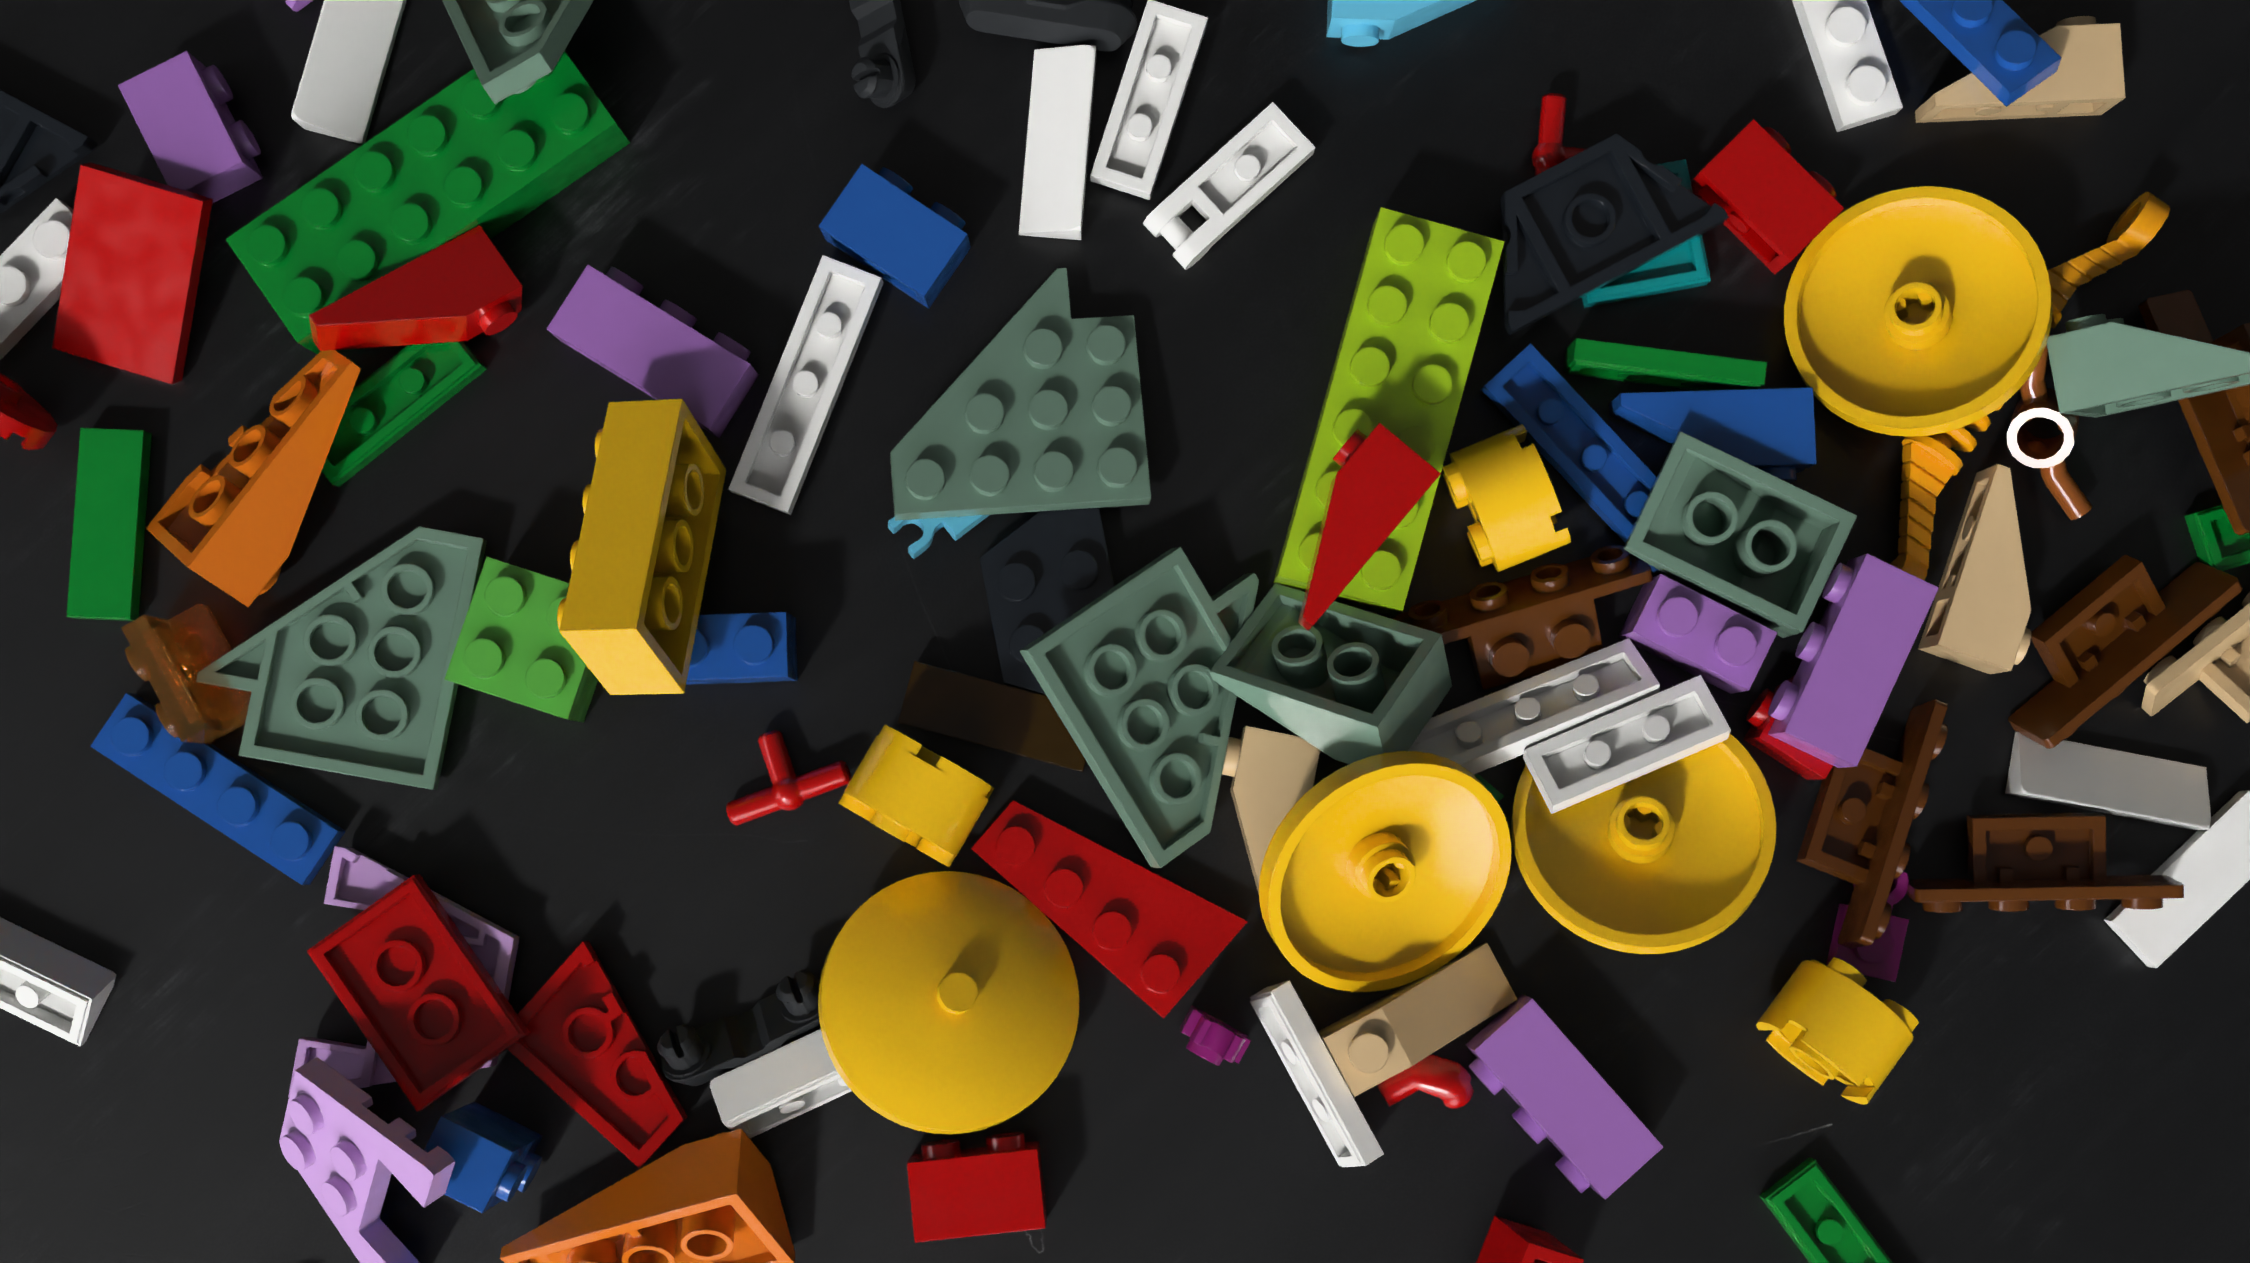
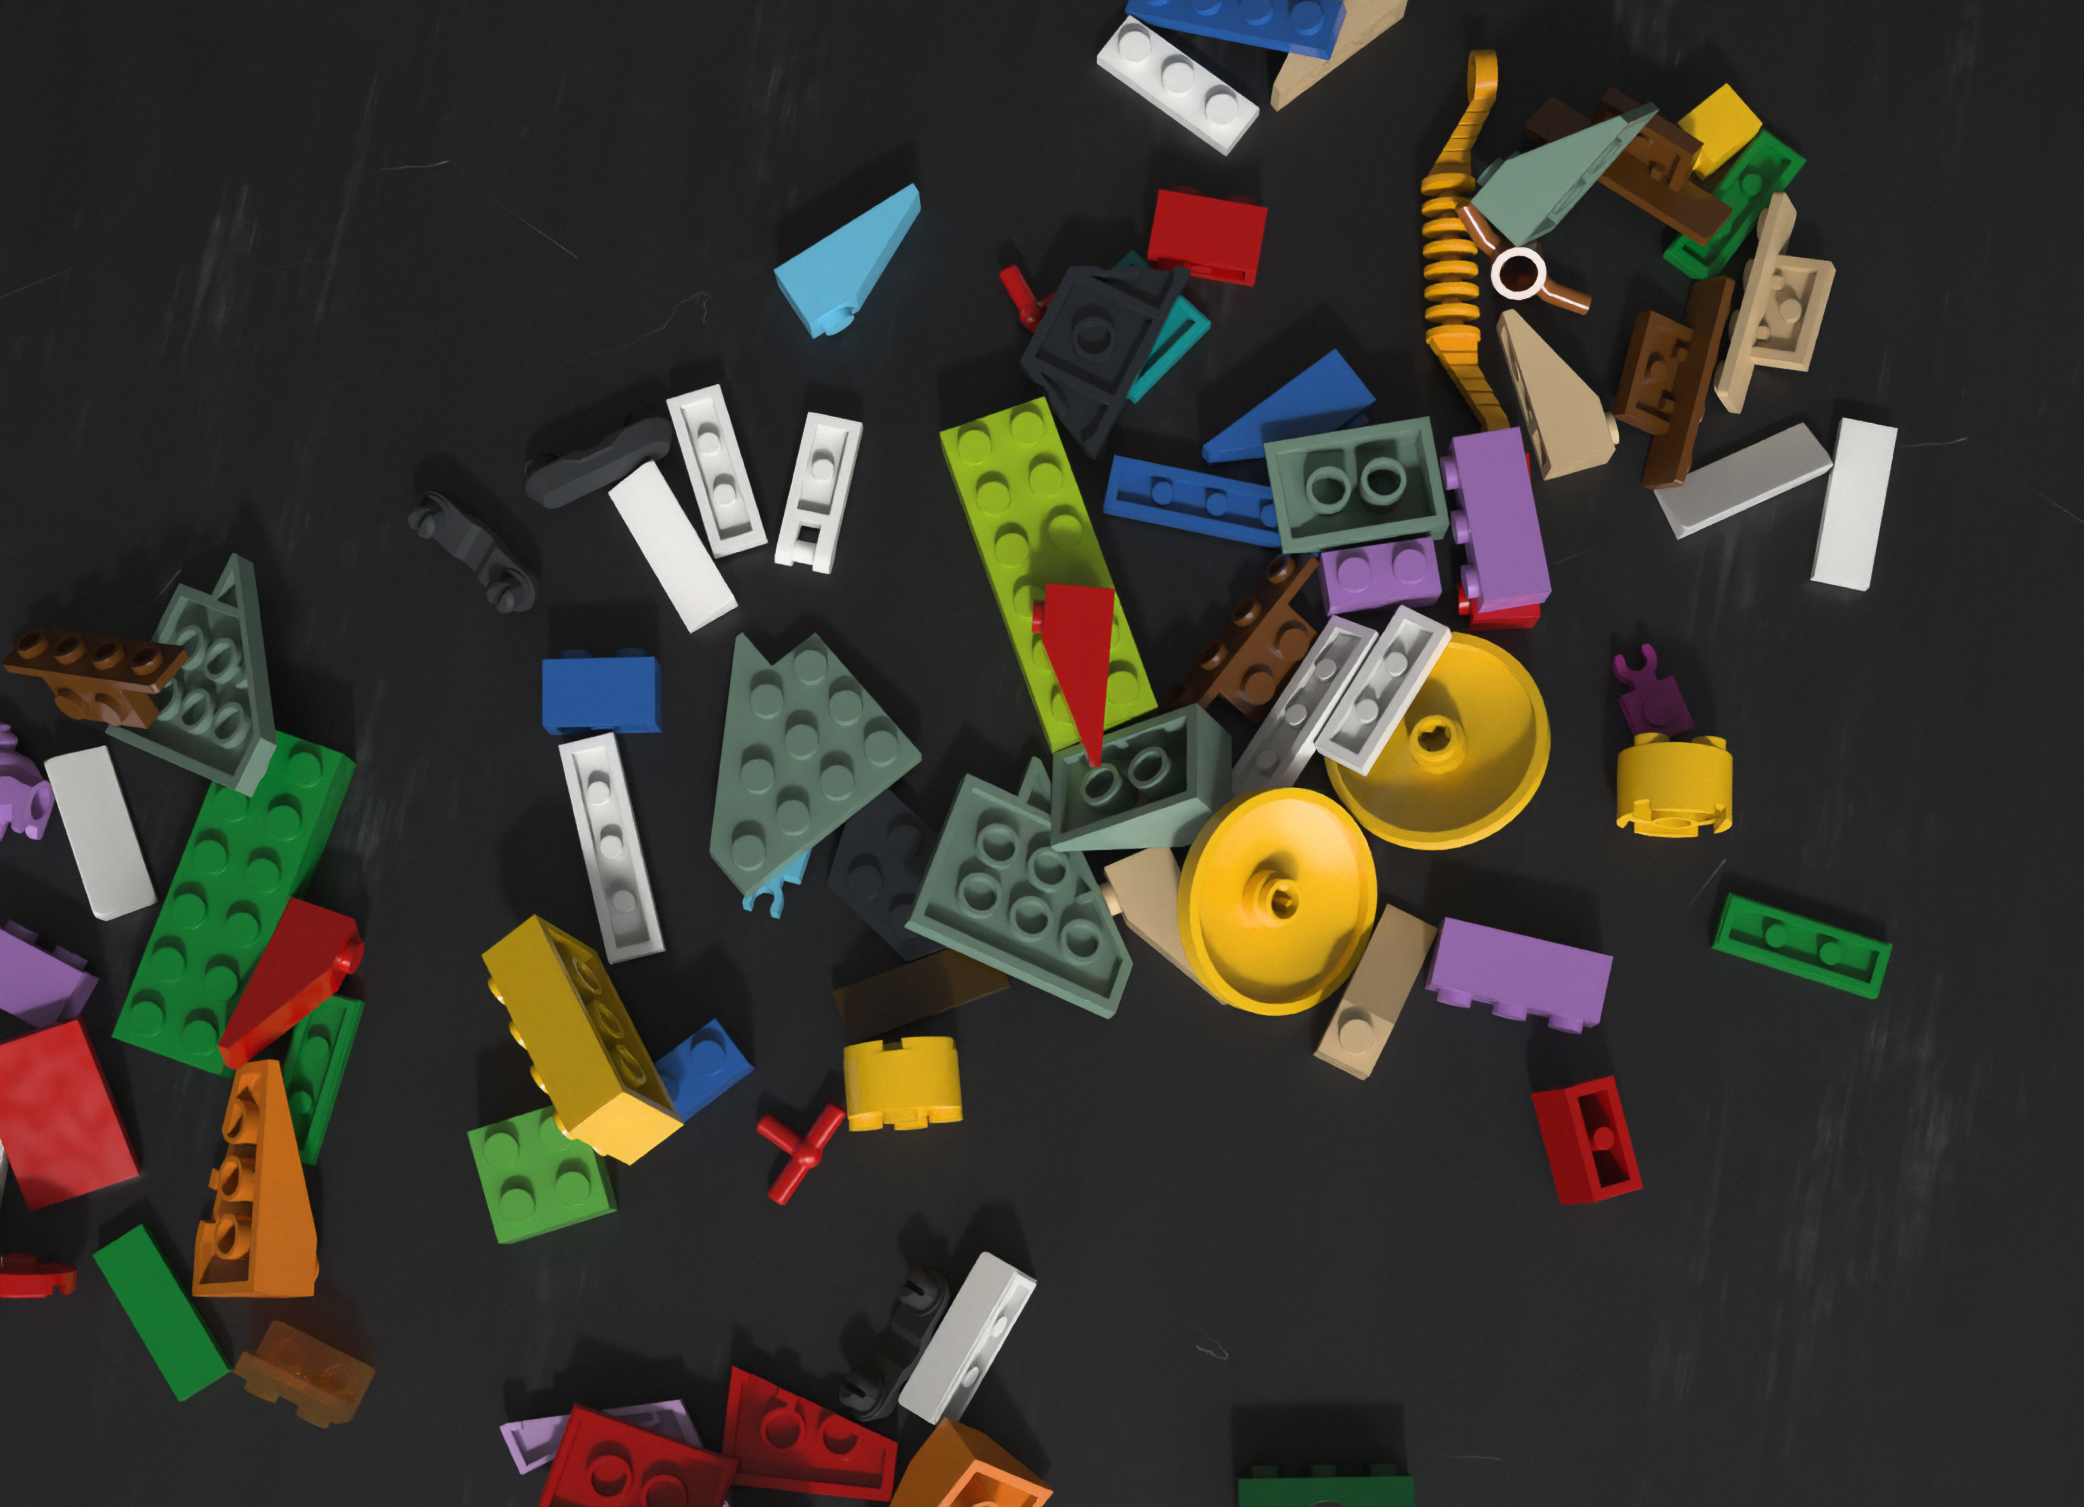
camera: 30 degrees left, 5 degrees down
(219, 791) = (380, 1450): blue plate -> none
(362, 665) = (428, 1280): sand green wing -> none
(654, 347) = (479, 898): medium lavender brick -> none
(948, 1002) = (1031, 1218): yellow dish -> none
(976, 1188) = (1147, 1340): red brick -> none
(1121, 913) = (1107, 1068): red wing -> none
(1213, 1038) = (1240, 1109): magenta plate -> none
(1315, 1075) = (1332, 1084): white tile -> none
(1433, 1076) = (1415, 1026): red arm -> none
(1507, 499) = (1175, 576): yellow brick -> none
(1661, 366) = (1218, 407): green tile -> none
(1865, 818) = (1589, 625): reddish brown bracket -> none
(1918, 311) = (1370, 244): yellow dish -> none
(2040, 860) = (1730, 568): reddish brown bracket -> none

